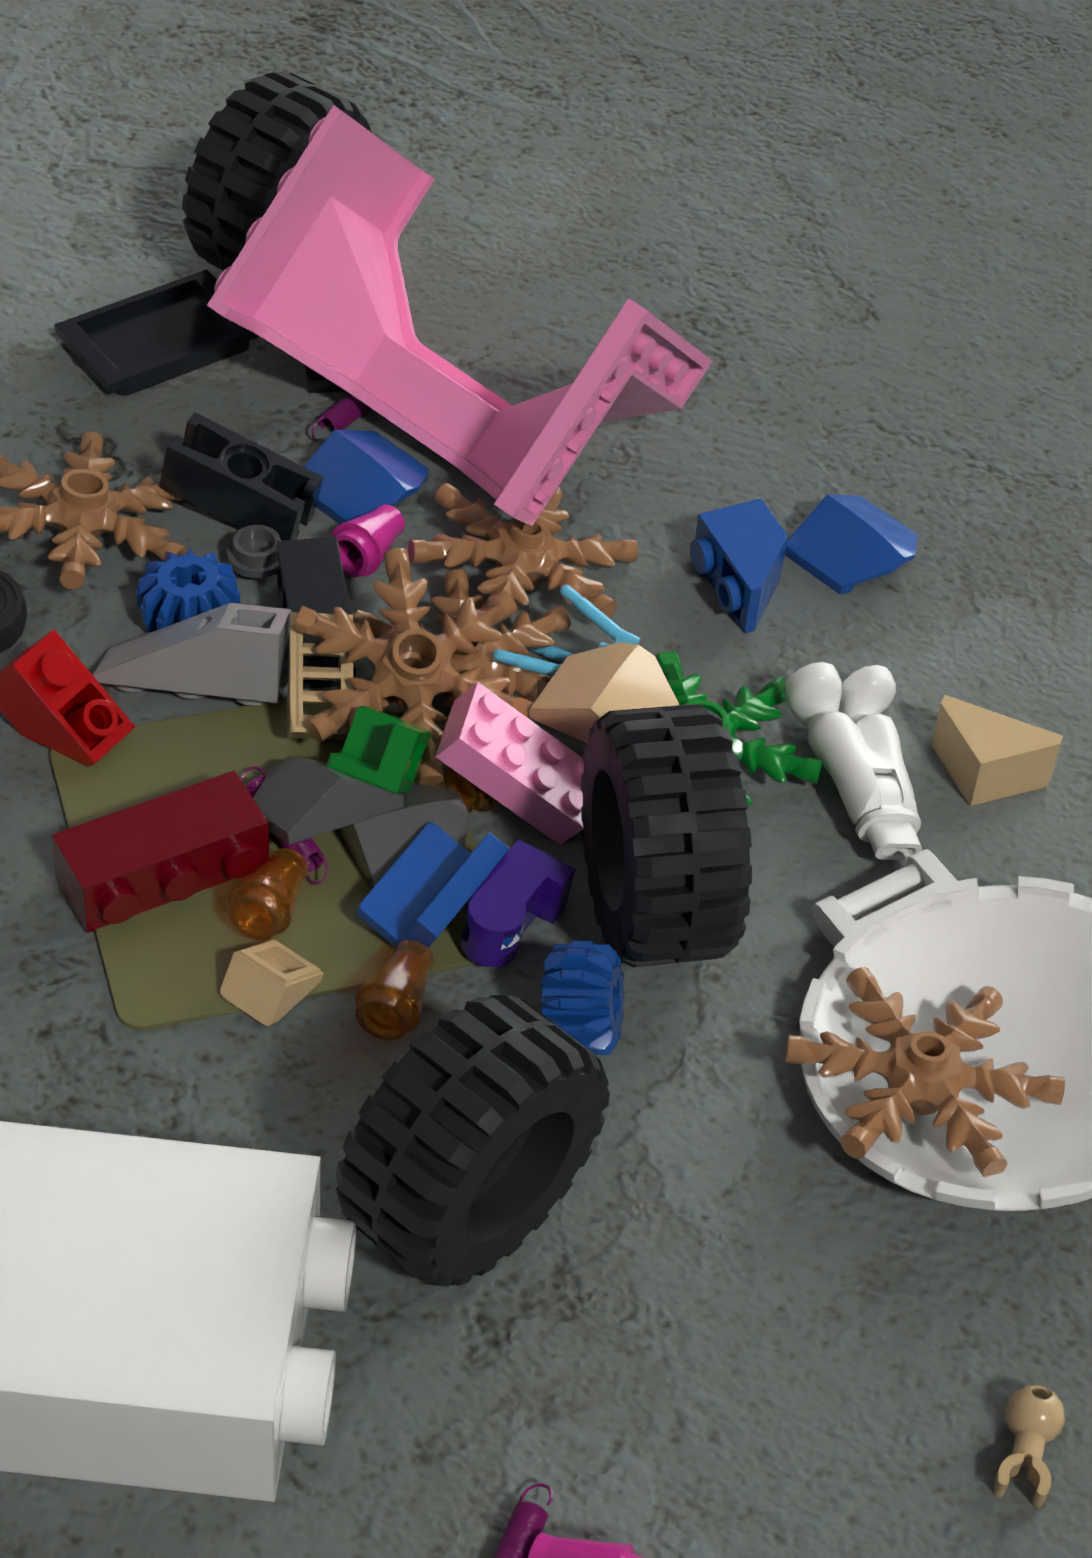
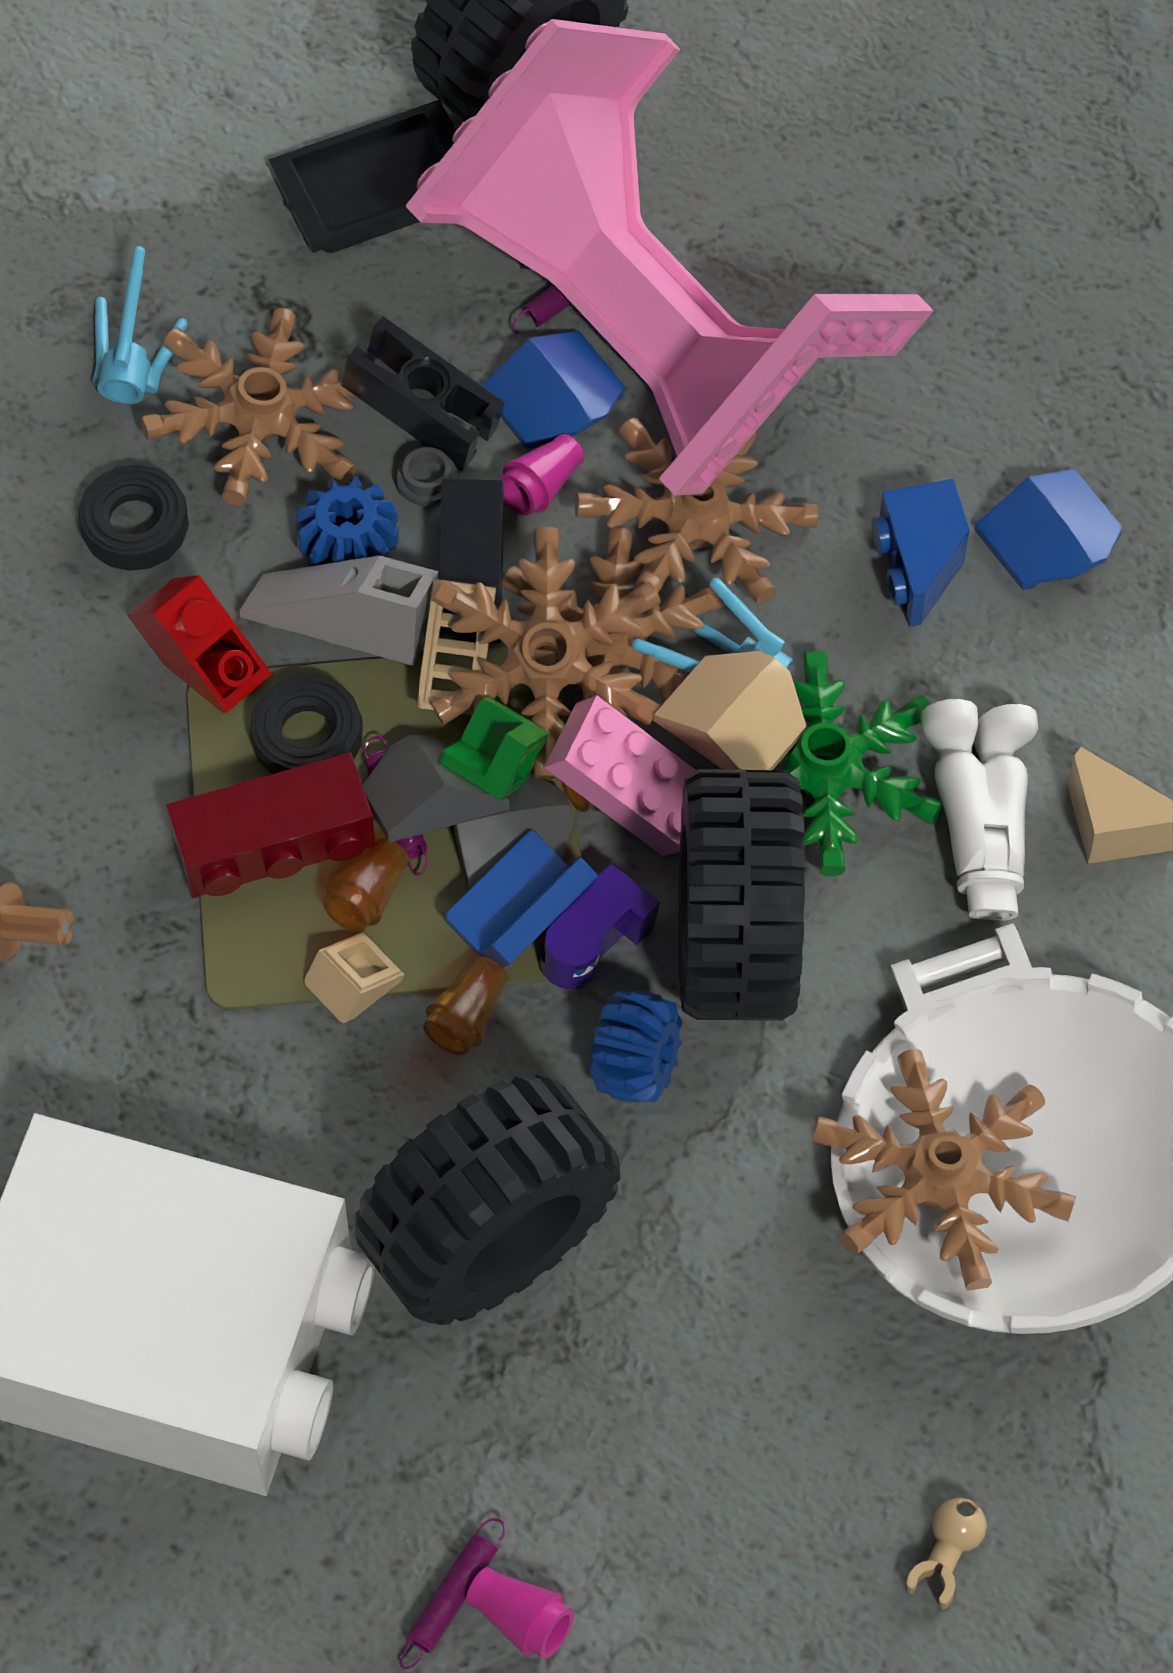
camera: 15 degrees right, 15 degrees up
(174, 739) = (299, 695): none -> black tyre

